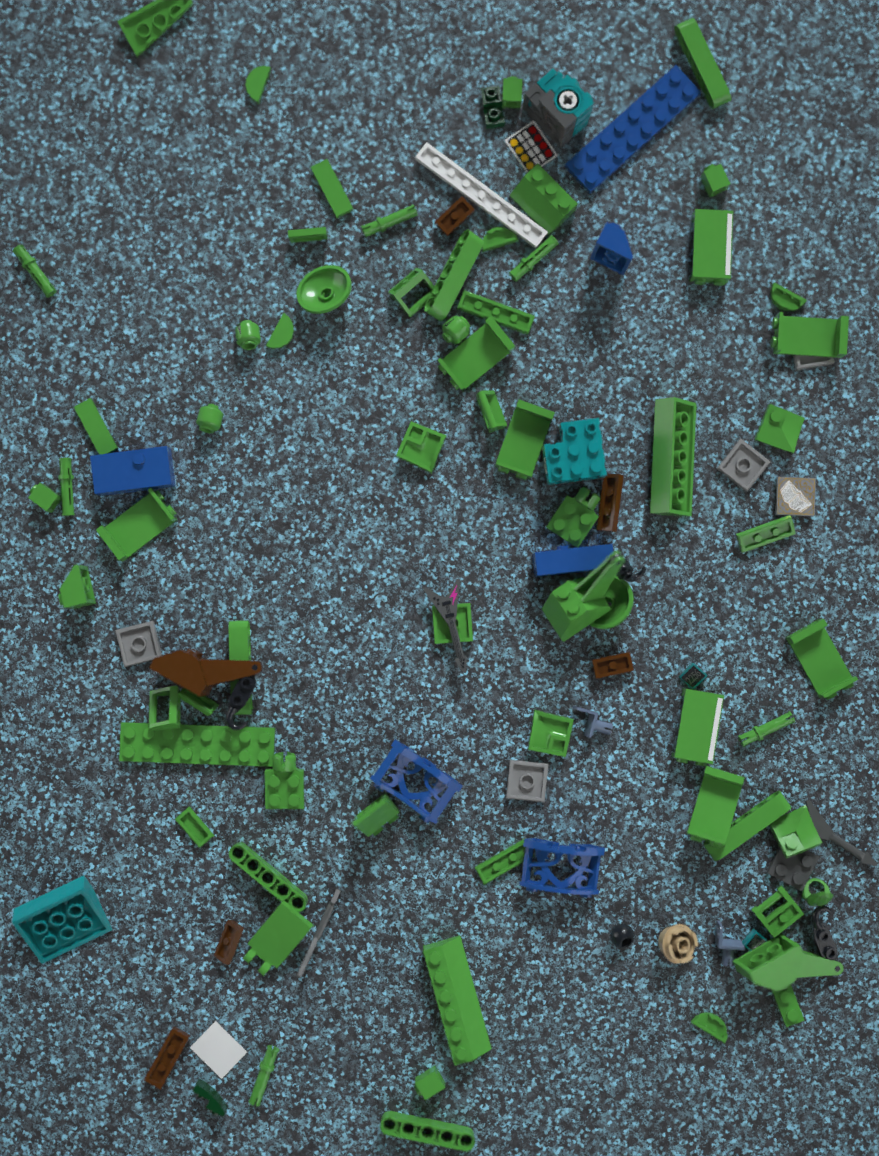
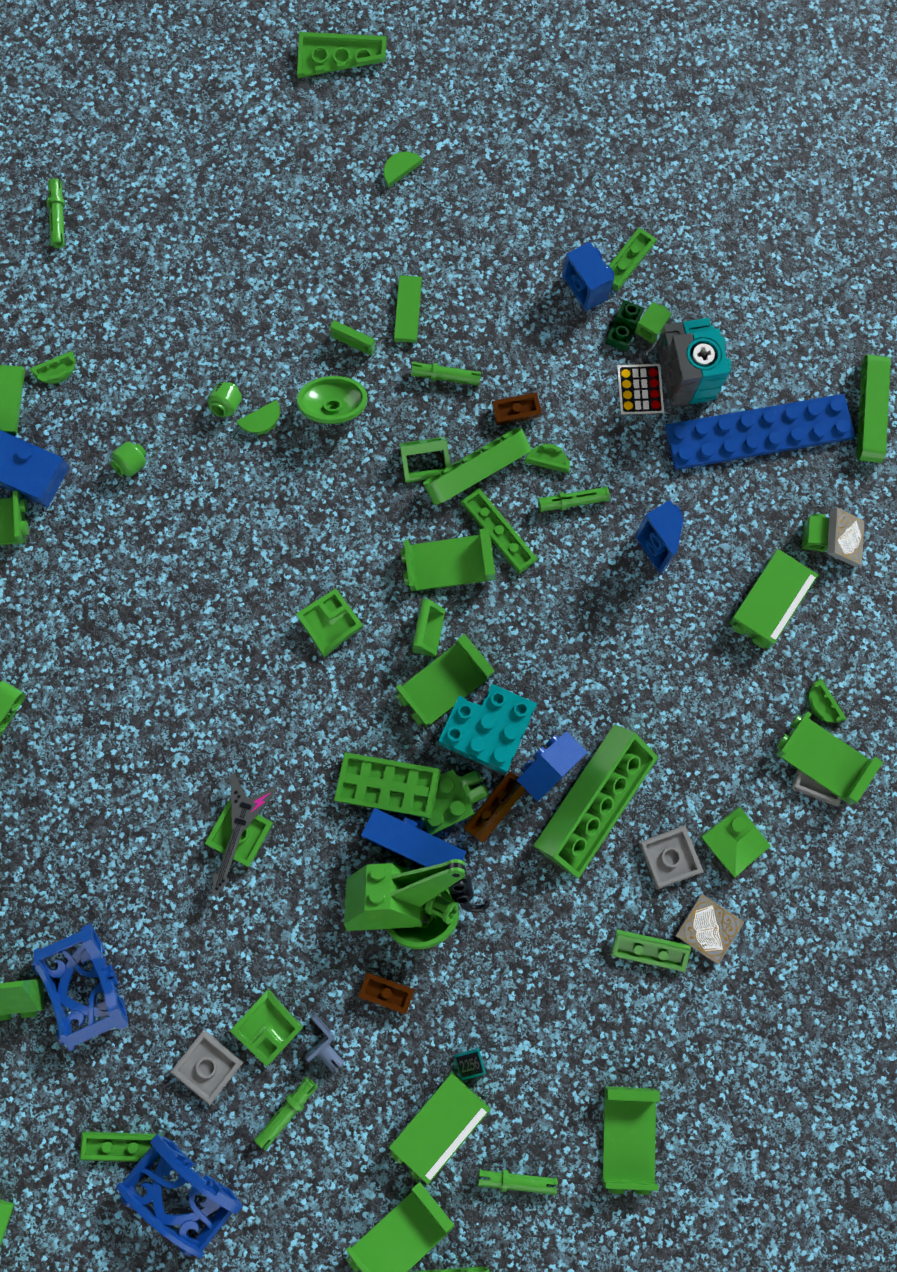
camera: 30 degrees right, 10 degrees down
(113, 386) = (56, 369): none -> bright green tile
(446, 86) = (588, 276): none -> blue brick
(455, 329) = (444, 522): bright green head -> none
(464, 54) = (631, 256): none -> bright green tile
(481, 195) = (558, 405): white plate -> none
(530, 532) = (387, 785): none -> bright green plate
(543, 199) = (620, 446): bright green slope -> none
(597, 768) = (279, 1121): none -> bright green pin
(619, 589) = (442, 908): none -> bright green bush
(631, 453) = (550, 765): none -> blue brick
(736, 171) = (845, 537): none -> tile

